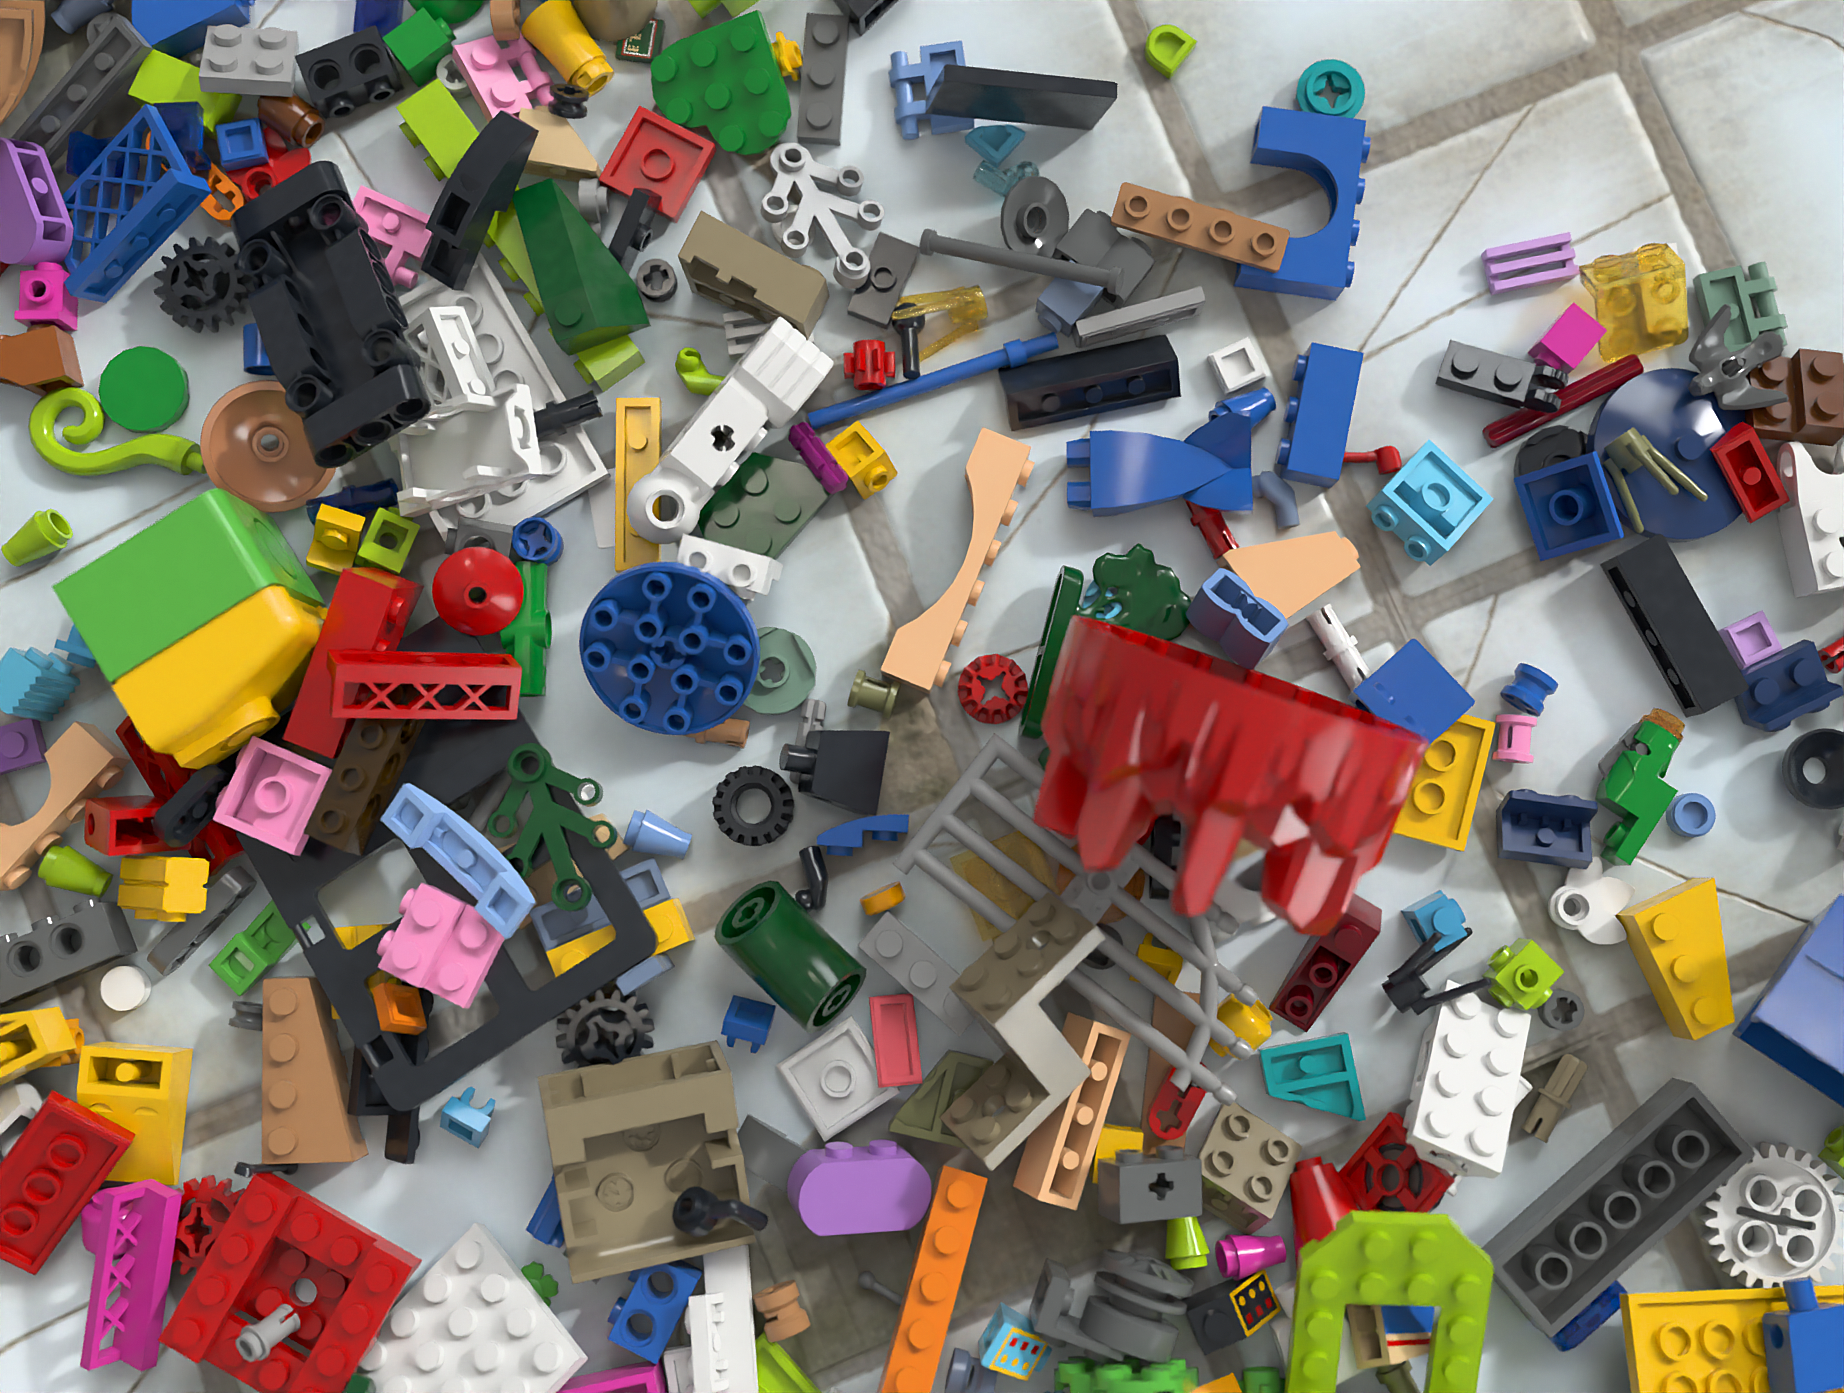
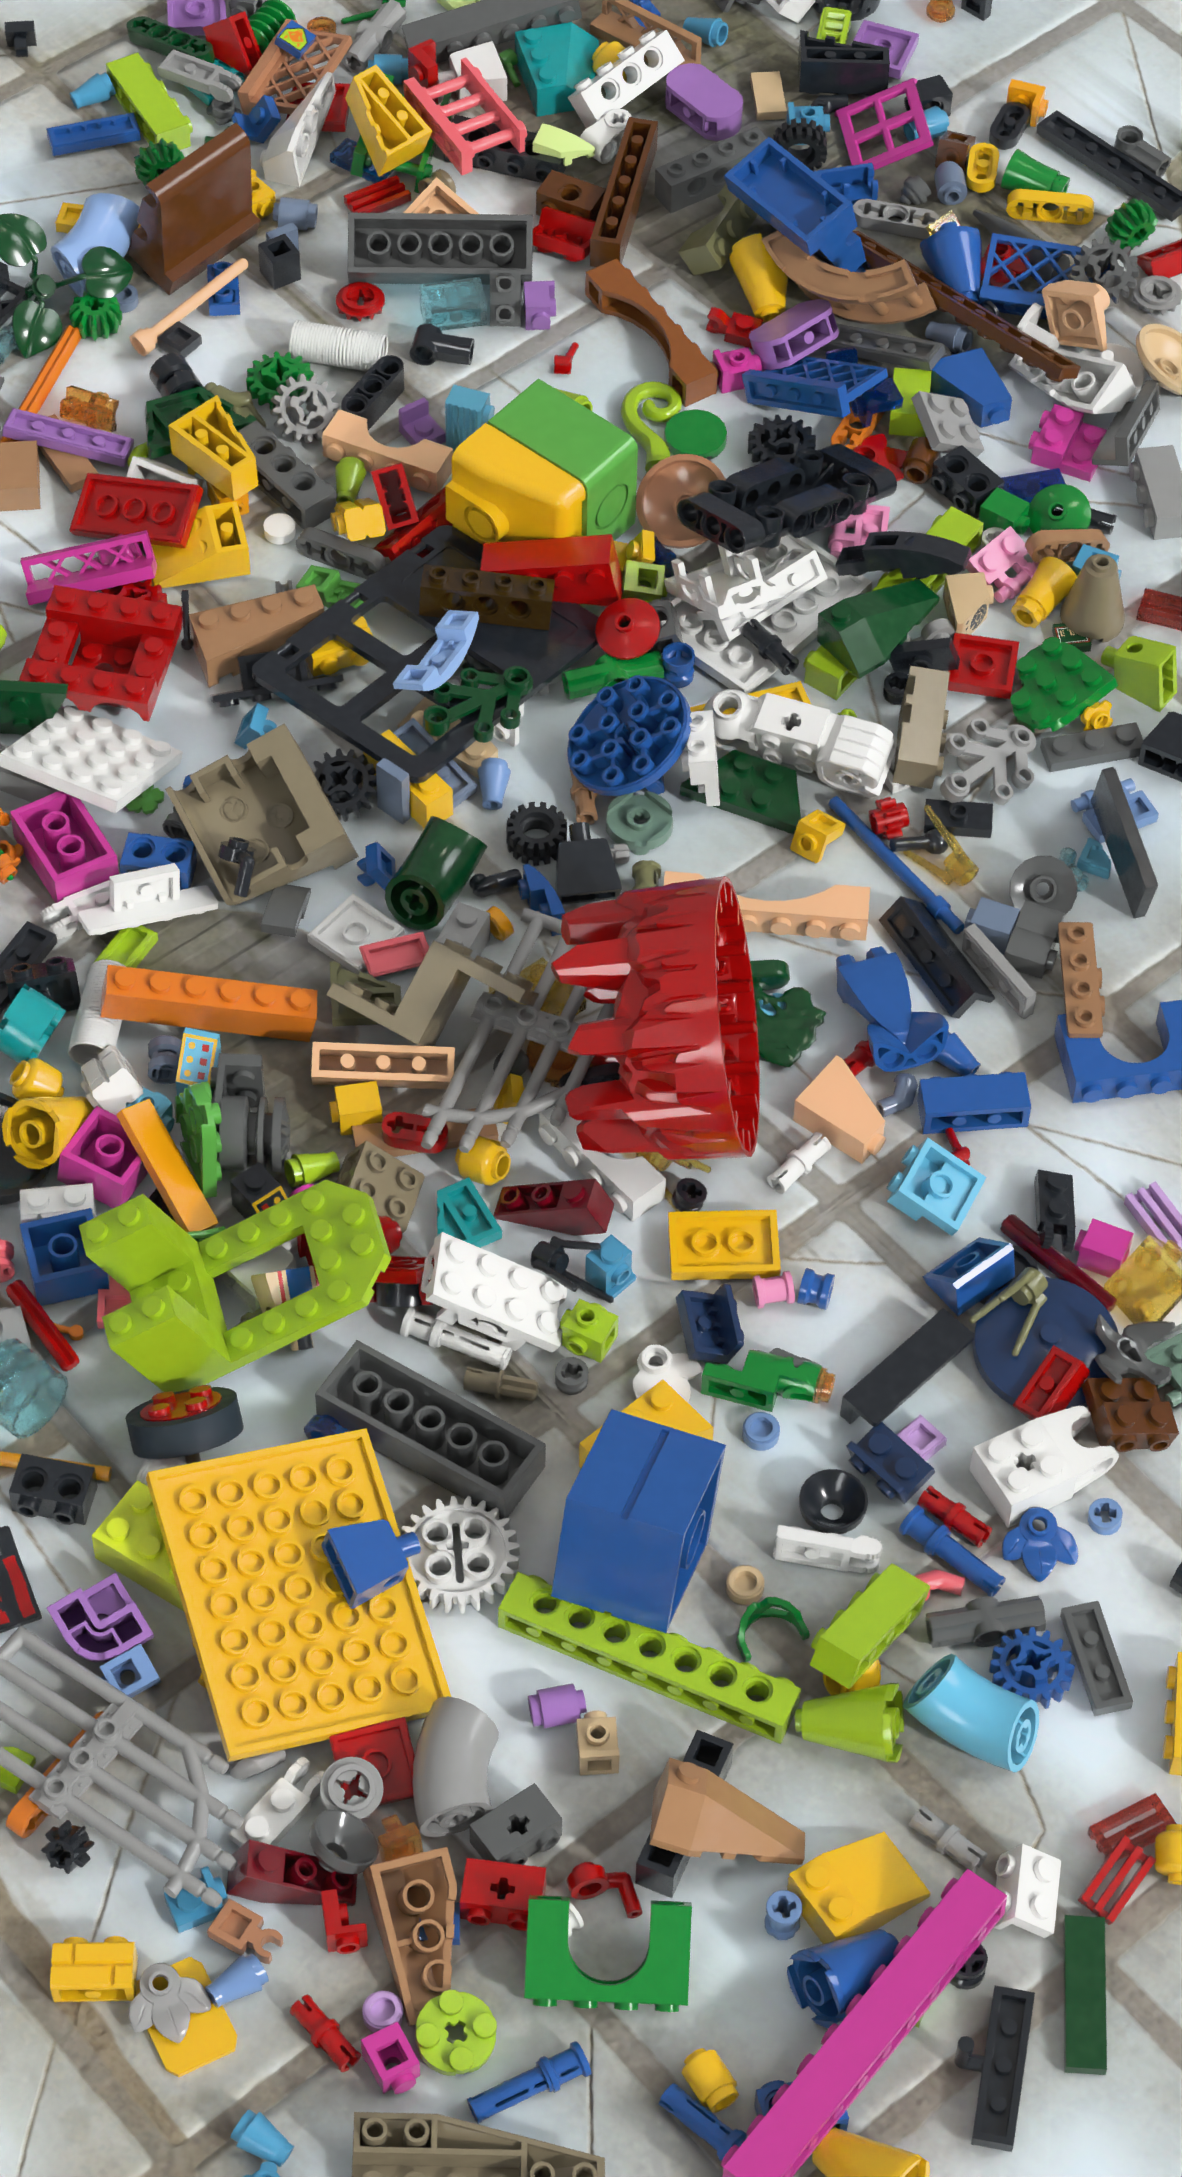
camera: 70 degrees right, 30 degrees down
(190, 807) = (419, 516): black plate -> none
(242, 144) = (889, 439): blue tile -> none
(258, 1339) = (76, 642): light grey pin -> none
(272, 795) = (442, 547): bright pink plate -> none
(399, 1008) = (320, 660): orange tile -> none
(419, 669) = (561, 597): red fence -> none
(440, 945) = (373, 661): bright pink plate -> none
(568, 101) = (1000, 596): black bush -> none
(781, 1311) = (178, 935): medium nougat wheel -> none
(818, 457) = (807, 804): magenta axle -> none
(859, 1188) = (282, 944): medium lavender brick -> none
(1110, 279) = (1011, 925): dark grey bar -> none
(1149, 1185) = (331, 1094): dark grey brick -> none
(1236, 366) = (991, 1048): white tile -> none
(1236, 618) = (791, 1074): medium blue brick -> none
(1413, 693) = (770, 1197): blue bracket -> none

